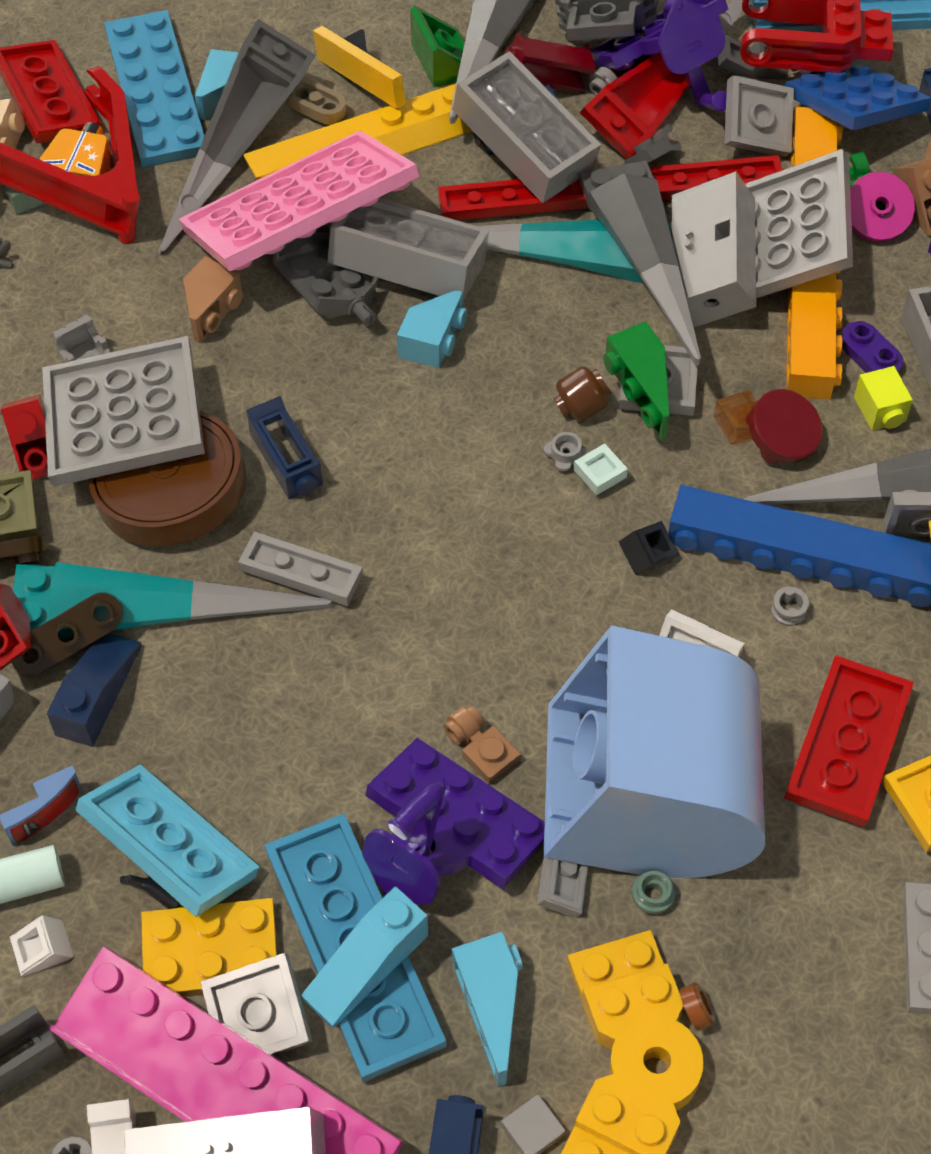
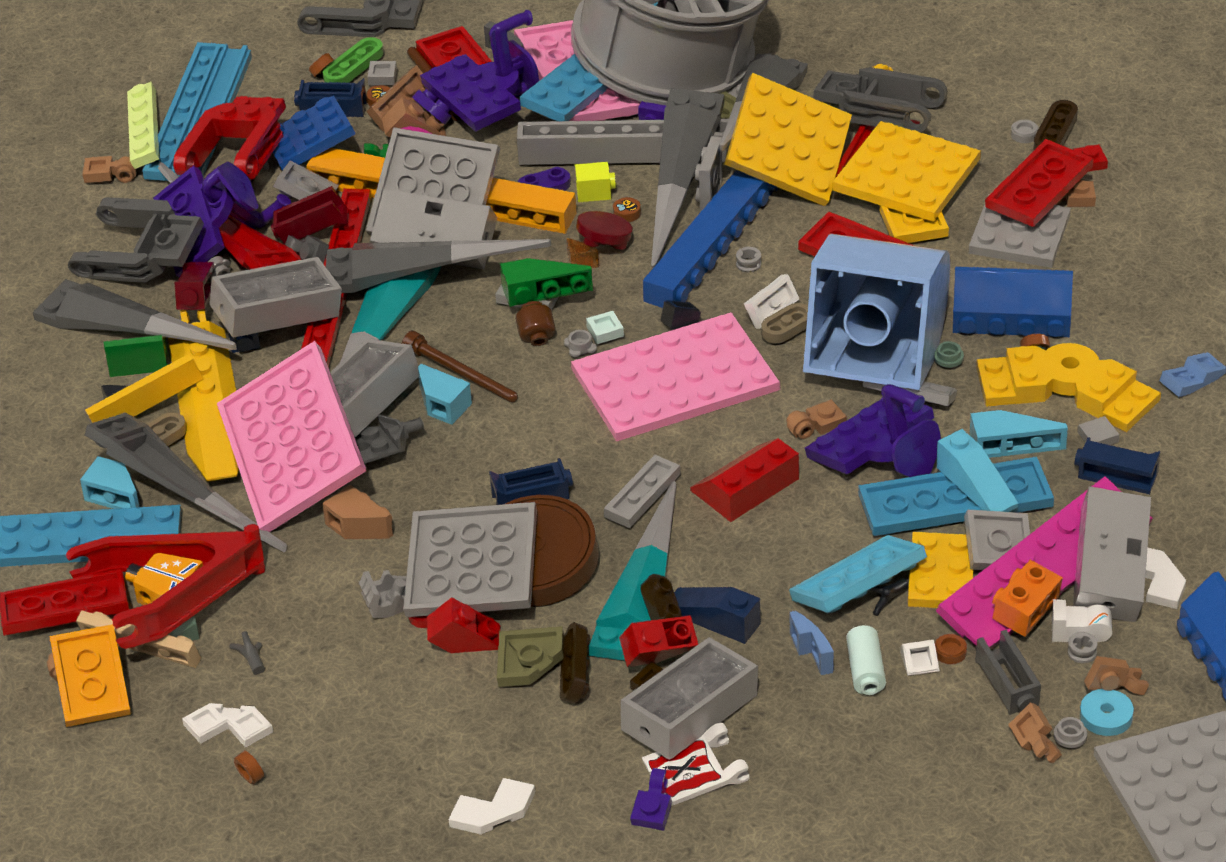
camera: 75 degrees left, 15 degrees down
(58, 982) = (951, 649): none -> dark orange tile
(124, 1060) = (1026, 597): none -> orange brick
(342, 679) = (749, 479): none -> red slope
(519, 288) = (421, 347): none -> reddish brown piece
(533, 566) = (674, 376): none -> bright pink plate
(698, 126) = (309, 215): none -> dark red window
(765, 959) = (1012, 301): none -> blue slope
(849, 449) = (627, 208): none -> dark orange tile

